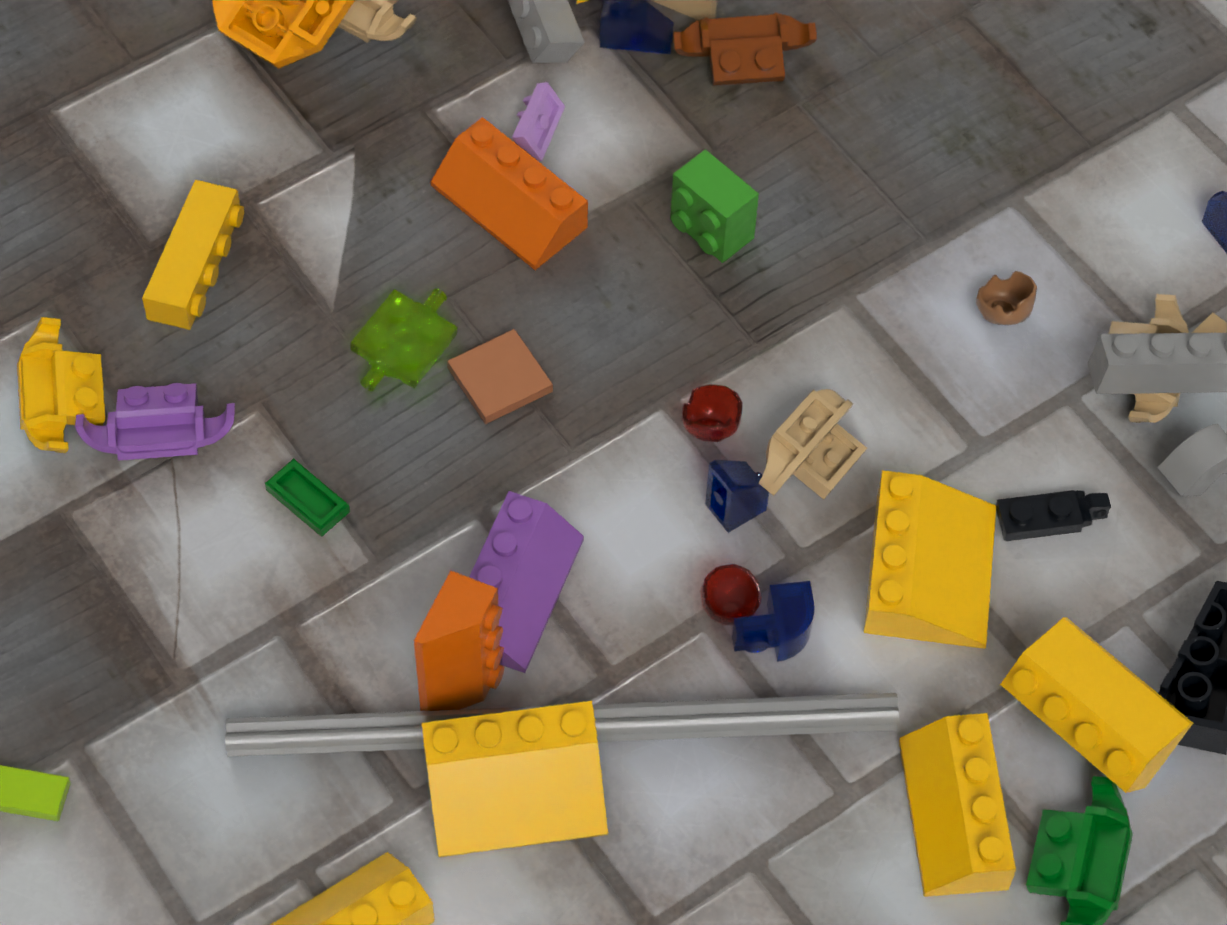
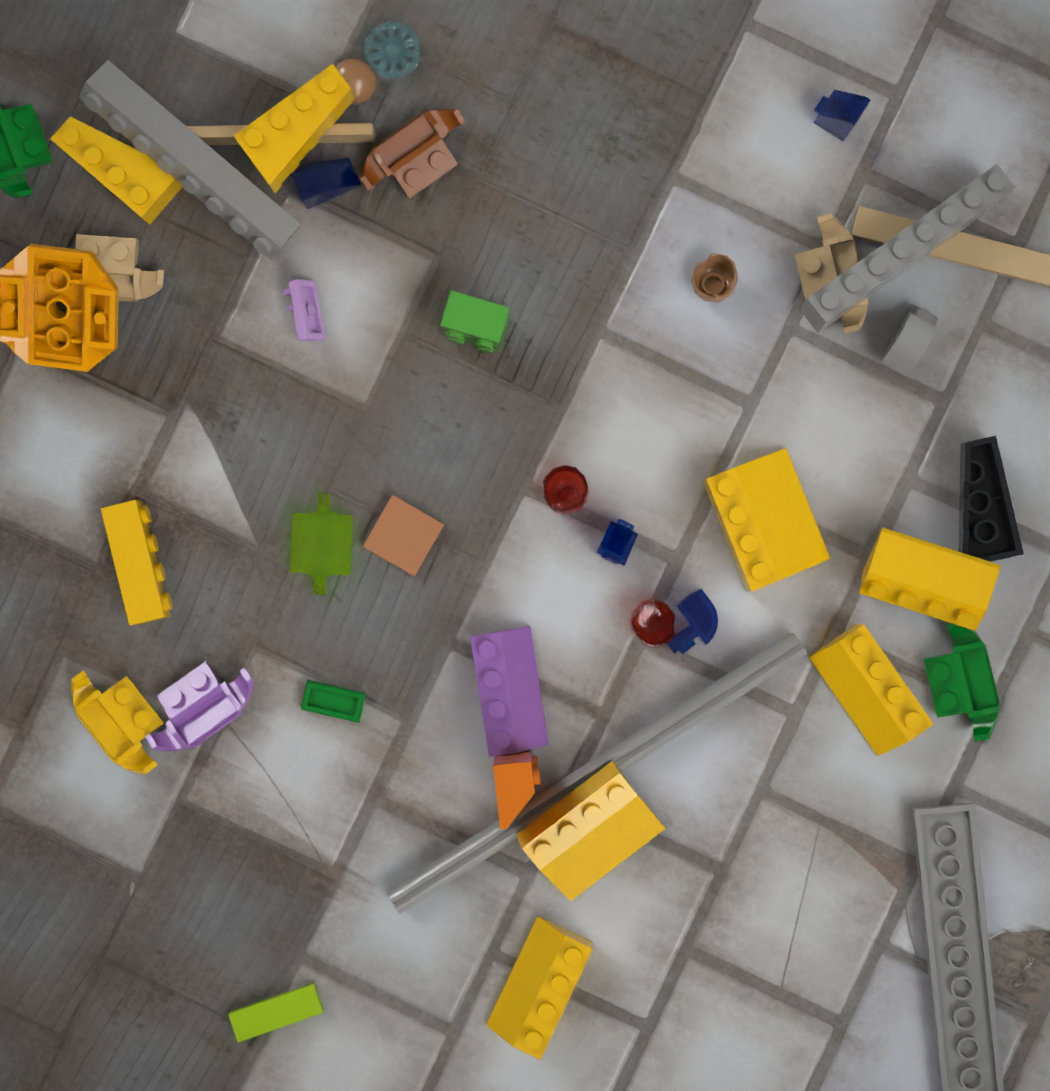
camera: 25 degrees left, 30 degrees up
(510, 194) = (323, 386): orange slope -> none
(812, 445) = (649, 479): tan plate -> none
(1050, 513) = (823, 435): black hinge -> none

